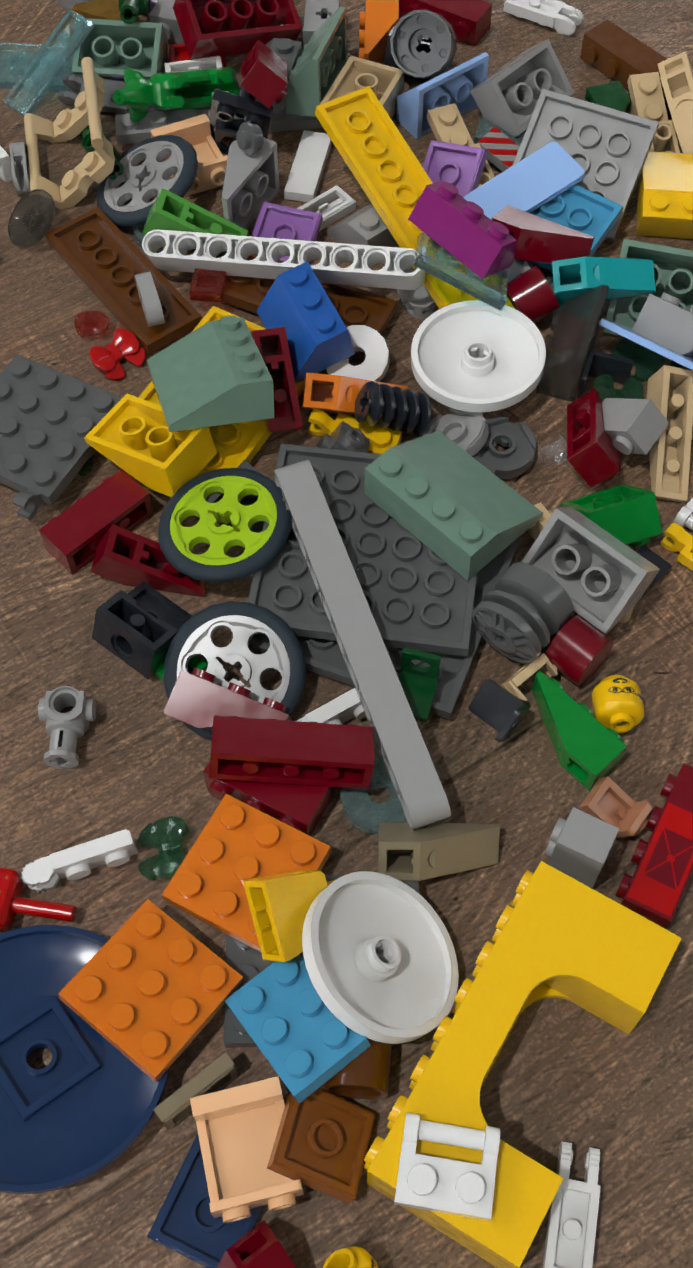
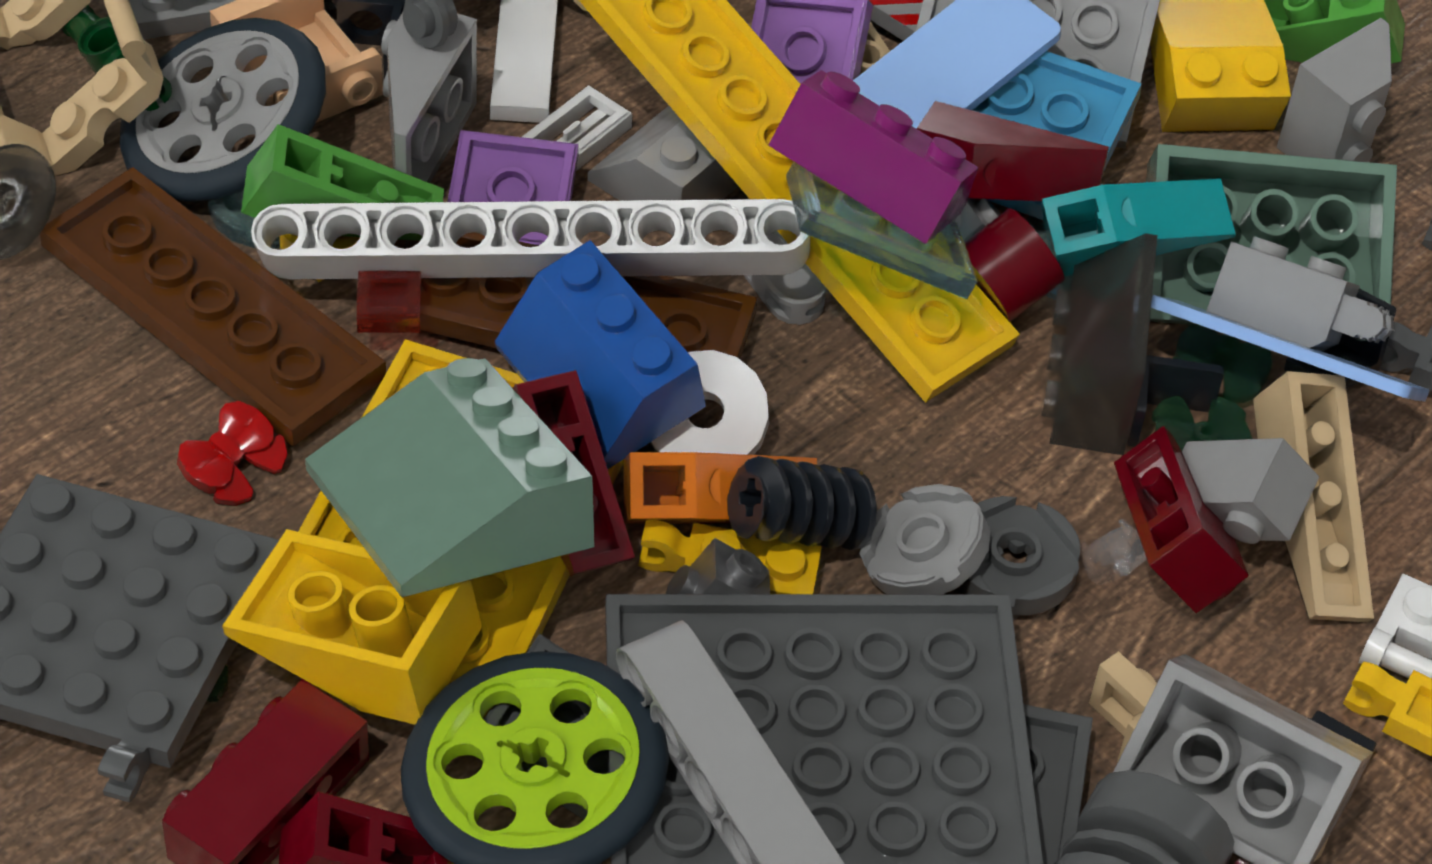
camera: 15 degrees left, 10 degrees down
(91, 323) = (168, 397): clear red piece -> none
(149, 299) = (283, 339): light grey beam -> none
(448, 501) = (954, 672): sand green slope -> none
(478, 356) = (940, 389): white dish -> none
(622, 511) = (1268, 647): green slope -> none

